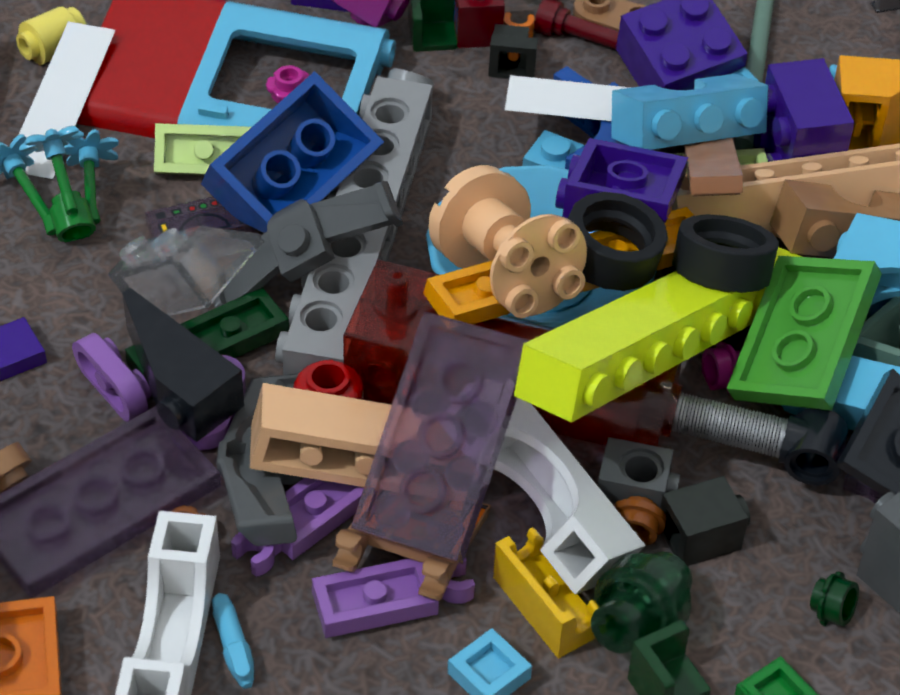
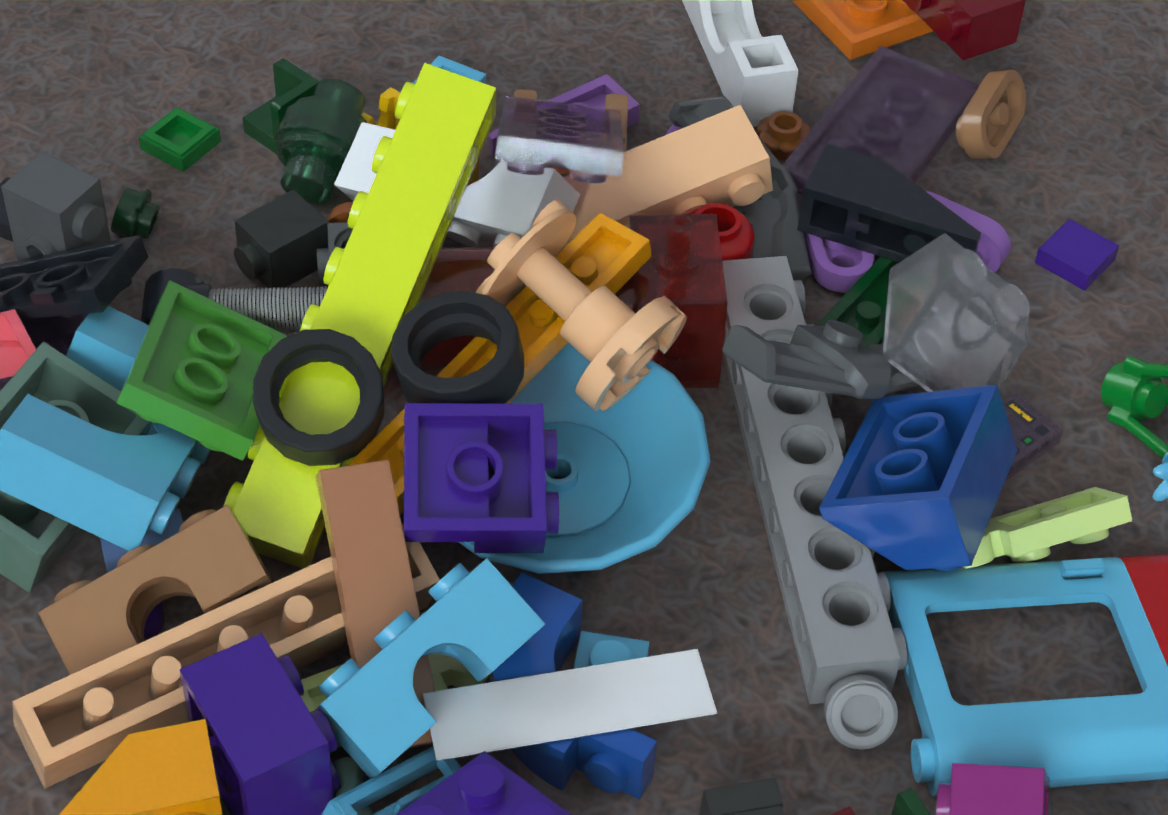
camera: 160 degrees right, 0 degrees up
(236, 649) = (675, 66): medium azure piece -> none
(285, 81) = (1015, 687): dark pink plate -> none

